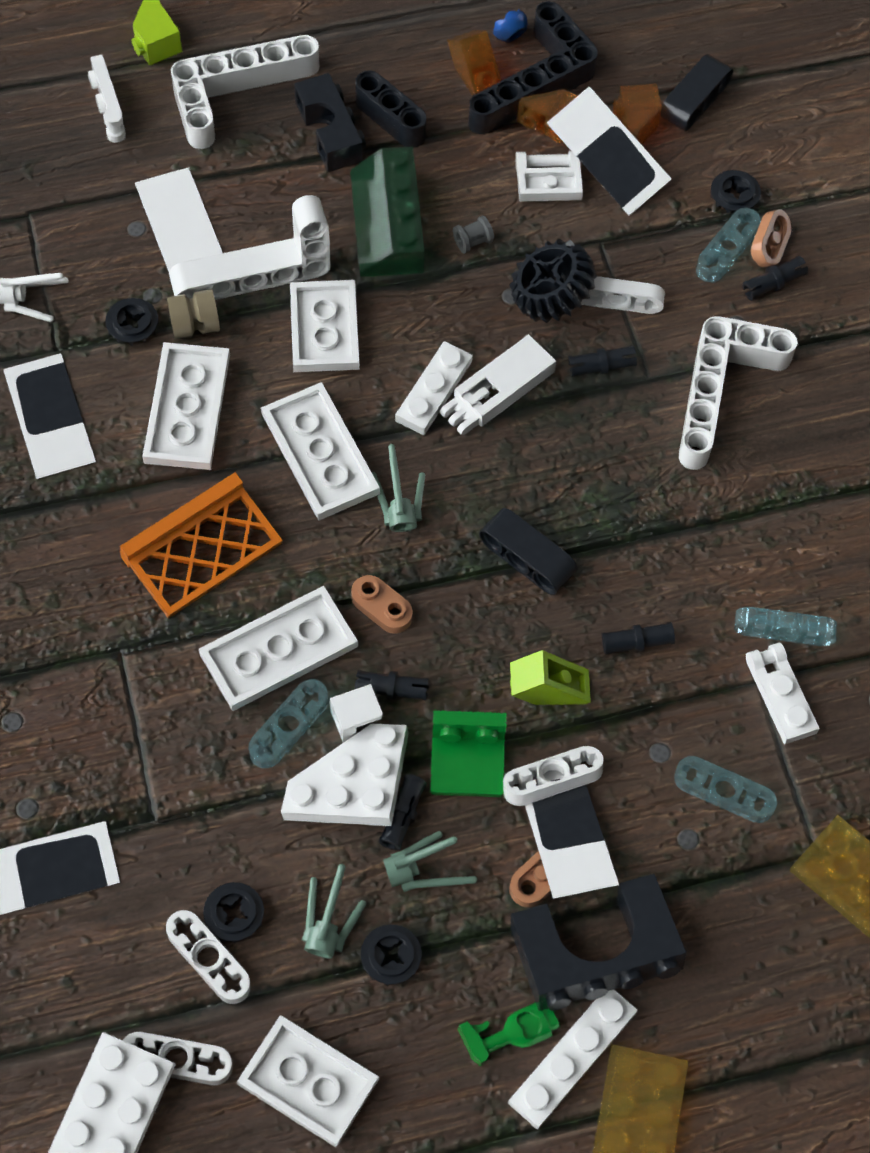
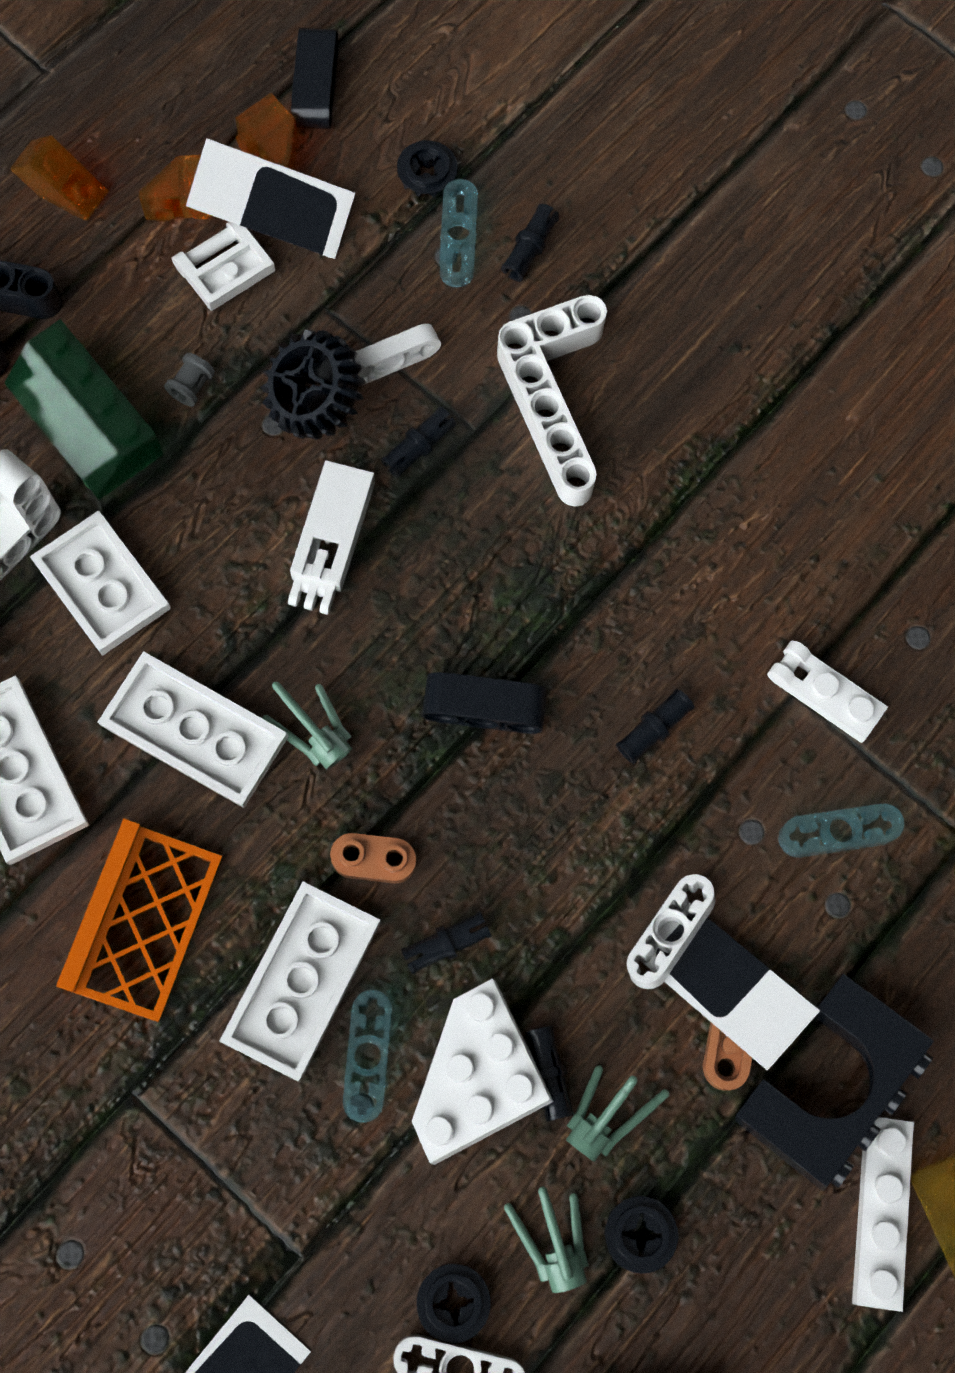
camera: 35 degrees left, 10 degrees up
(354, 710) = (432, 999): white panel -> none
(433, 388) = (264, 580): white plate -> none
(468, 753) = (575, 969): green bracket -> none
(511, 27) = (68, 113): blue plate -> none
(521, 1029) = (817, 1221): green piece -> none
(549, 680) = (600, 832): lime slope -> none
(568, 67) = (160, 115): black beam -> none
(771, 238) = (498, 201): nougat plate -> none
(785, 626) = (787, 619): clear light blue beam -> none

